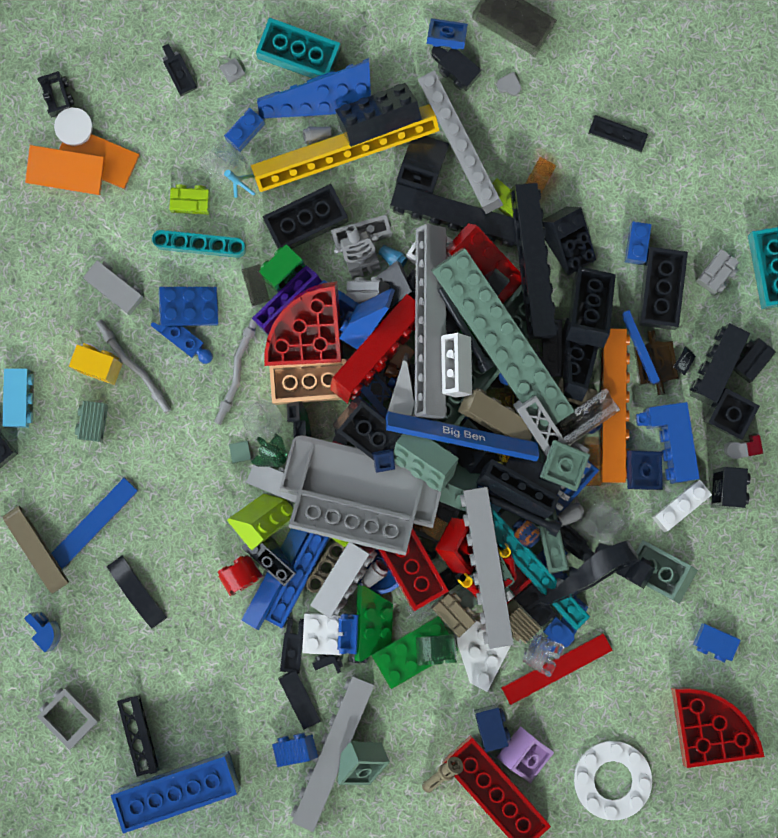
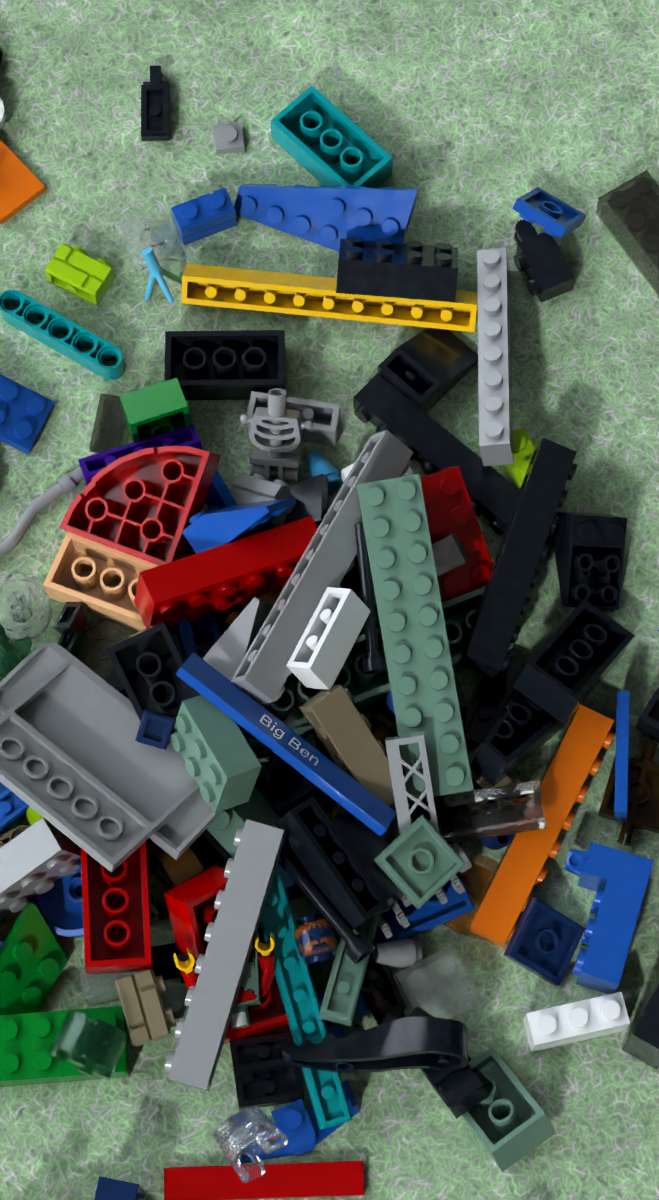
camera: 30 degrees right, 15 degrees down
(316, 134) = (299, 263): light grey cone -> none
(375, 573) = (60, 896): light grey cone -> none
(480, 660) = (156, 1106): white plate -> none
(509, 84) = (605, 318): light grey tile -> none
(521, 623) = (240, 1074): dark tan brick -> none
(541, 173) = (593, 456): clear orange slope -> none

